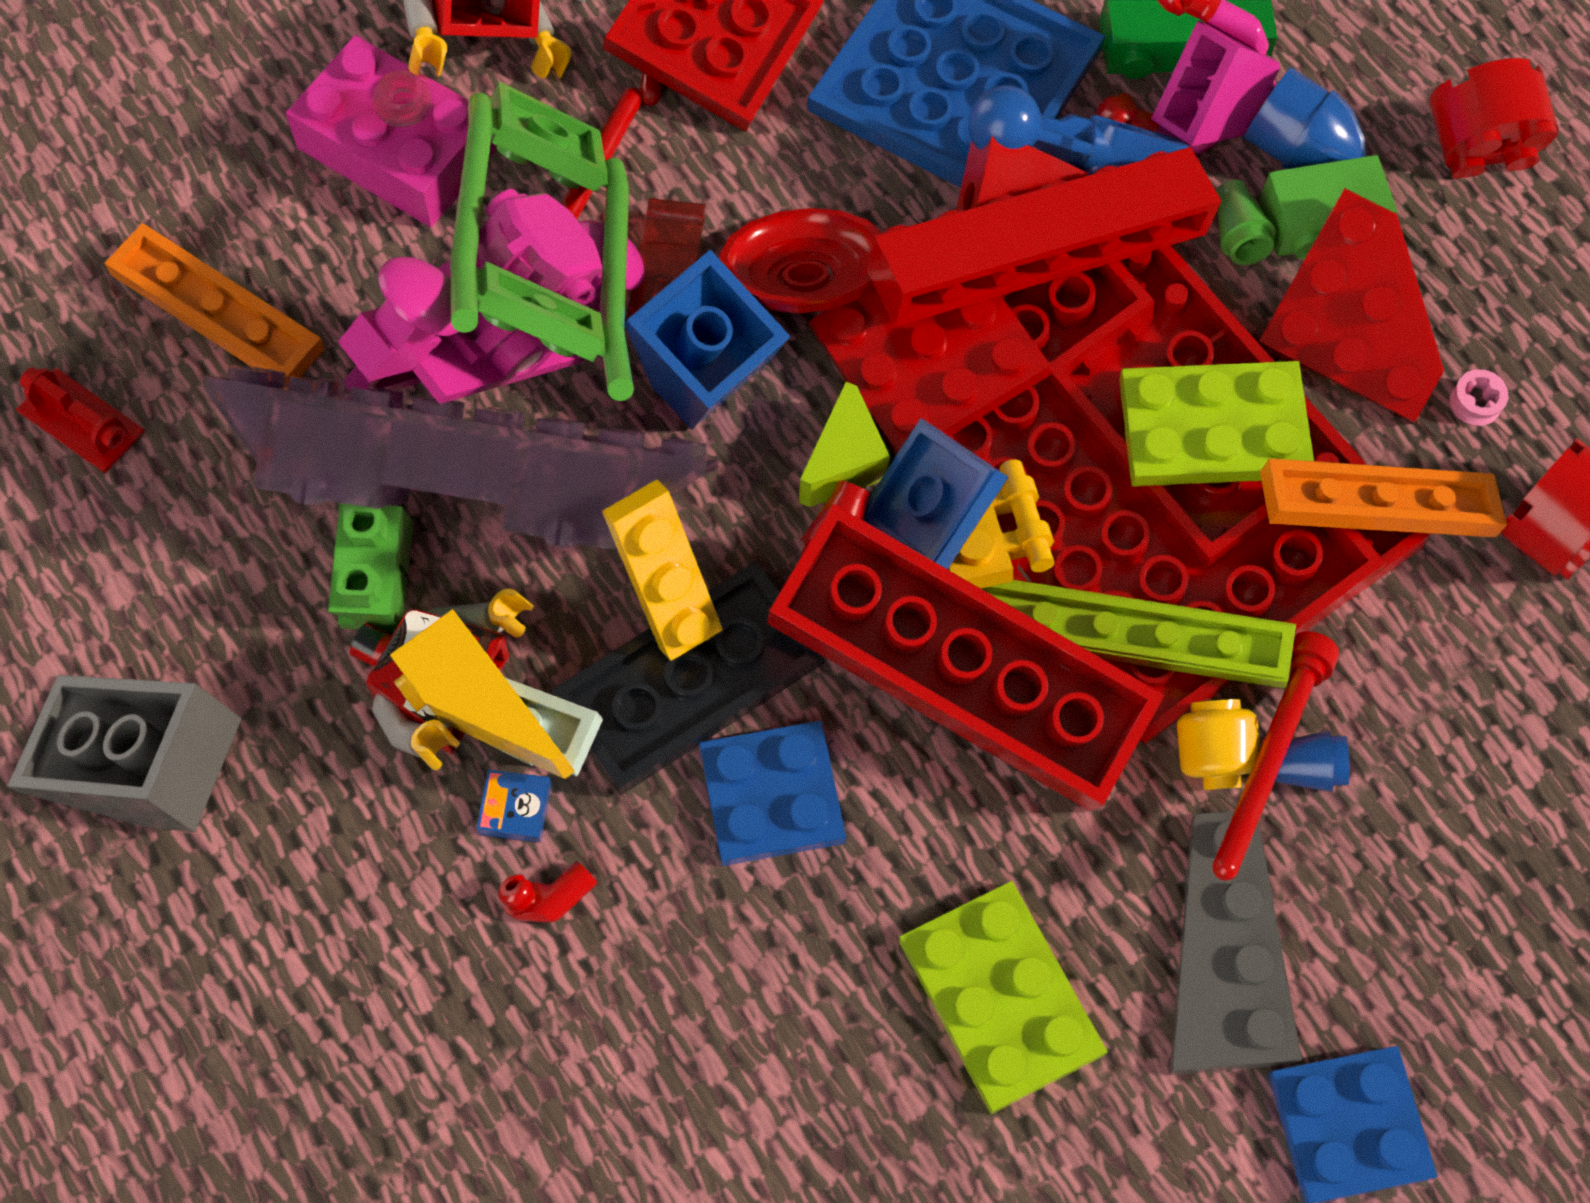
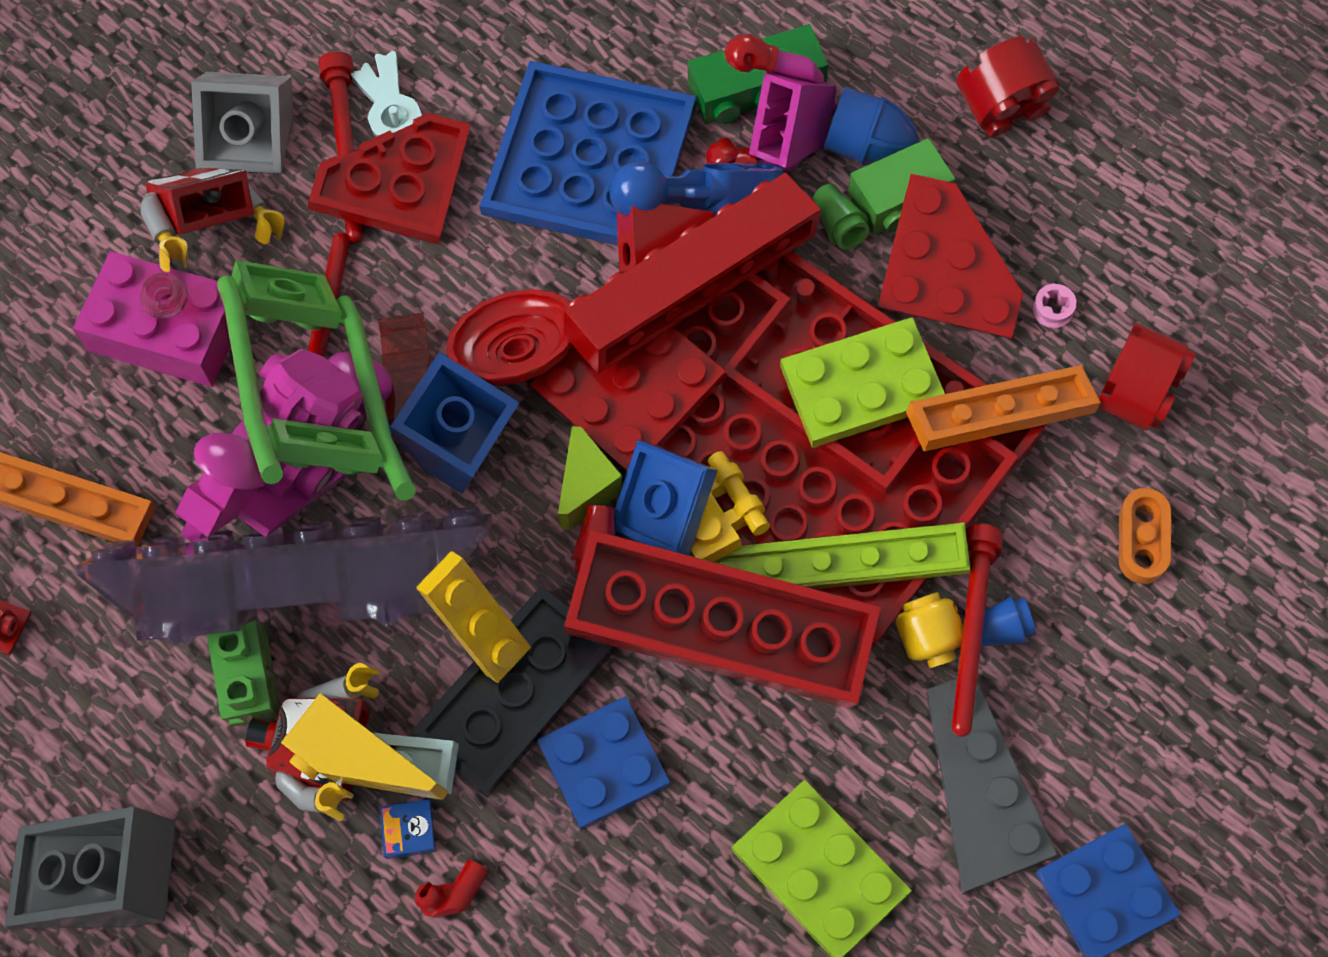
camera: 10 degrees left, 0 degrees up
(1517, 707) = (1145, 538): none -> orange plate

